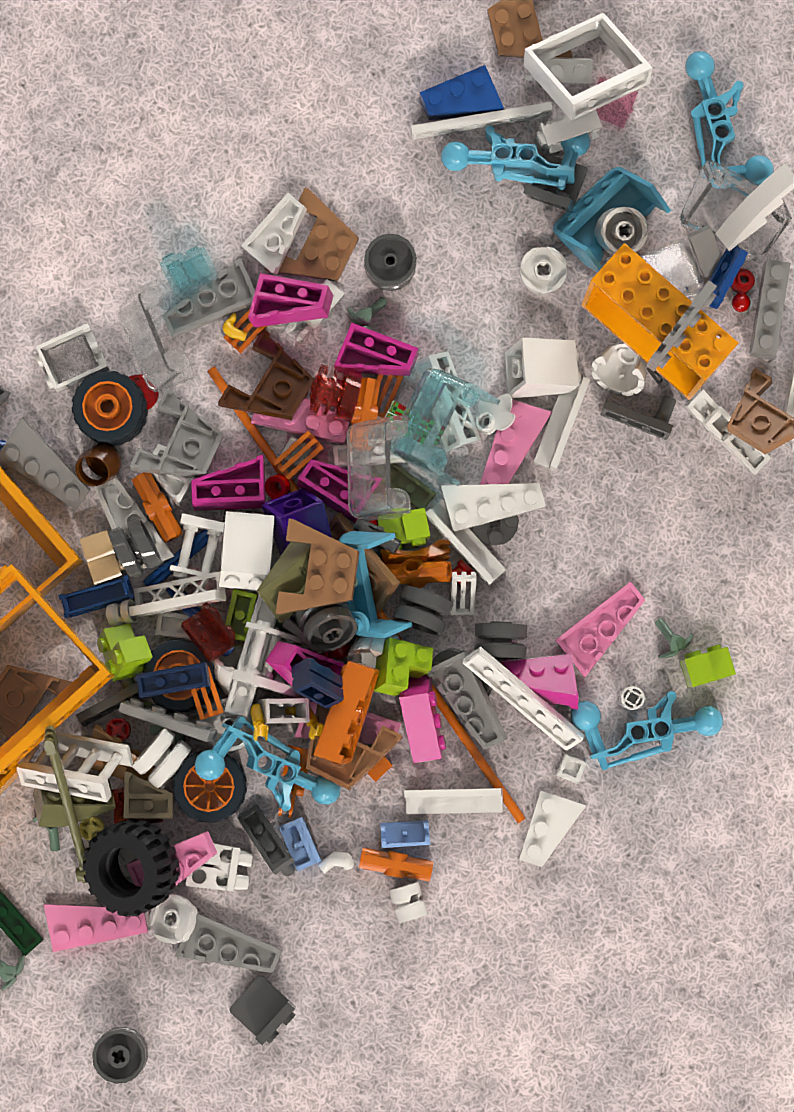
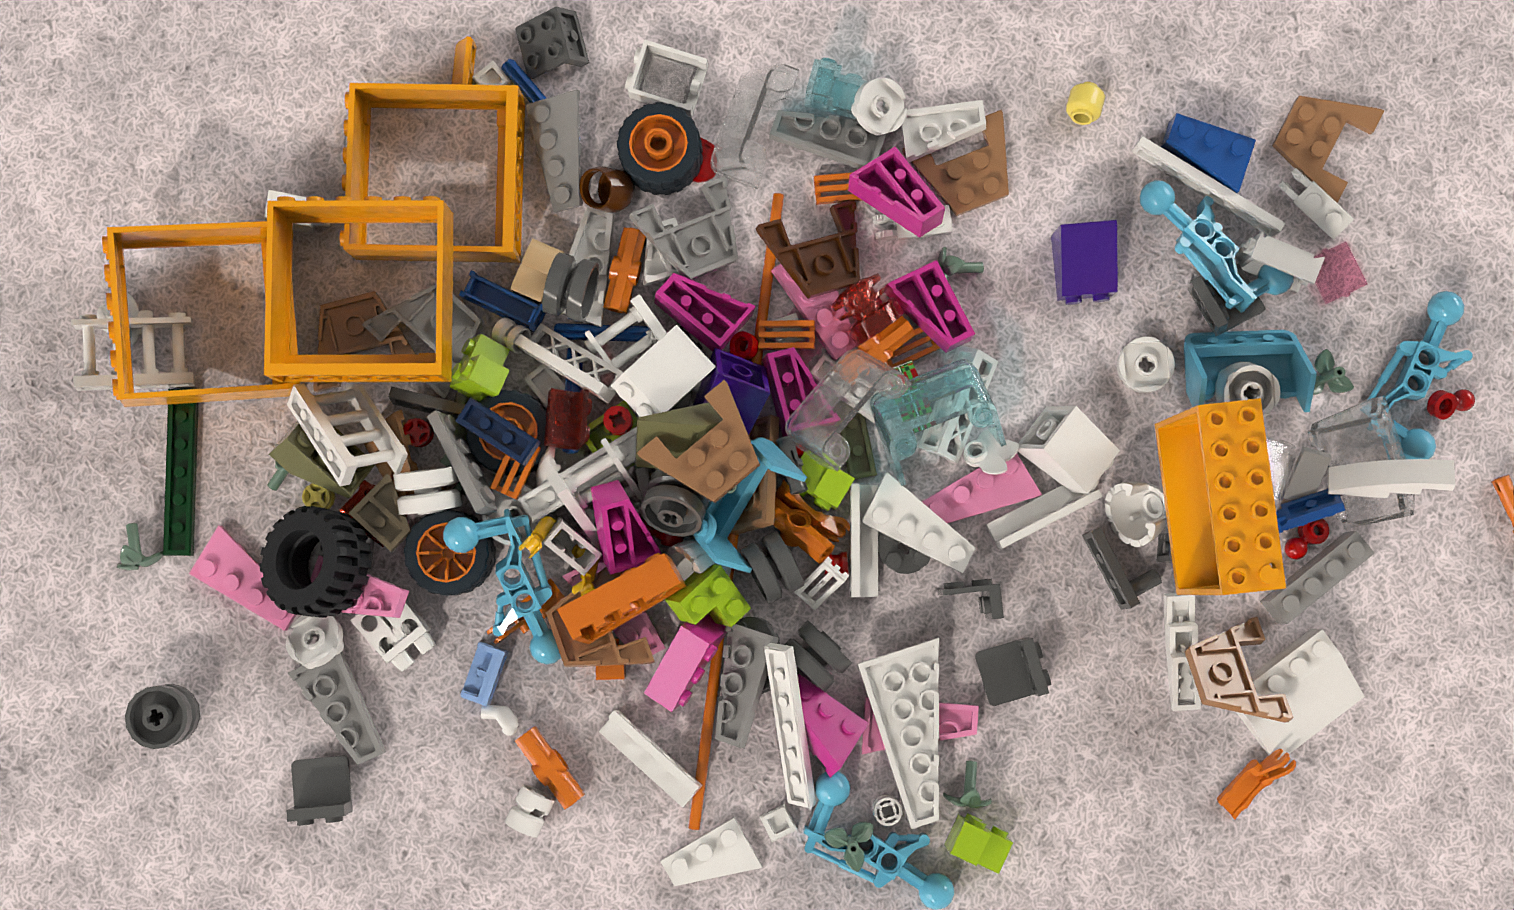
camera: 45 degrees right, 0 degrees up
(51, 749) = (328, 394): olive hinge -> none
(58, 651) = (420, 316): none -> light grey wing
(215, 261) = (865, 107): none -> white plate
(231, 331) = (825, 176): yellow animal -> none
(245, 607) = (621, 427): none -> red wheel
(267, 841) = (455, 645): dark grey piece -> none
(317, 683) = (617, 548): dark blue brick -> none
(355, 135) = (1085, 103): none -> light yellow head
(396, 249) = (1032, 241): dark grey wheel -> none
(405, 834) = (581, 748): light blue hinge -> none
(447, 238) = (1085, 261): none -> dark purple slope
(579, 511) = (989, 603): none -> dark grey bracket
(587, 624) = (906, 710): none -> white wing
(601, 94) = (1307, 242): white window -> none
(632, 540) = (1012, 671): none -> dark grey bracket
(635, 743) = (854, 854): none -> sand green plant
(665, 172) = (1333, 376): none -> sand green plant
(689, 318) = (1261, 524): light grey wing -> none
(752, 128) = (1443, 404): none -> red plate

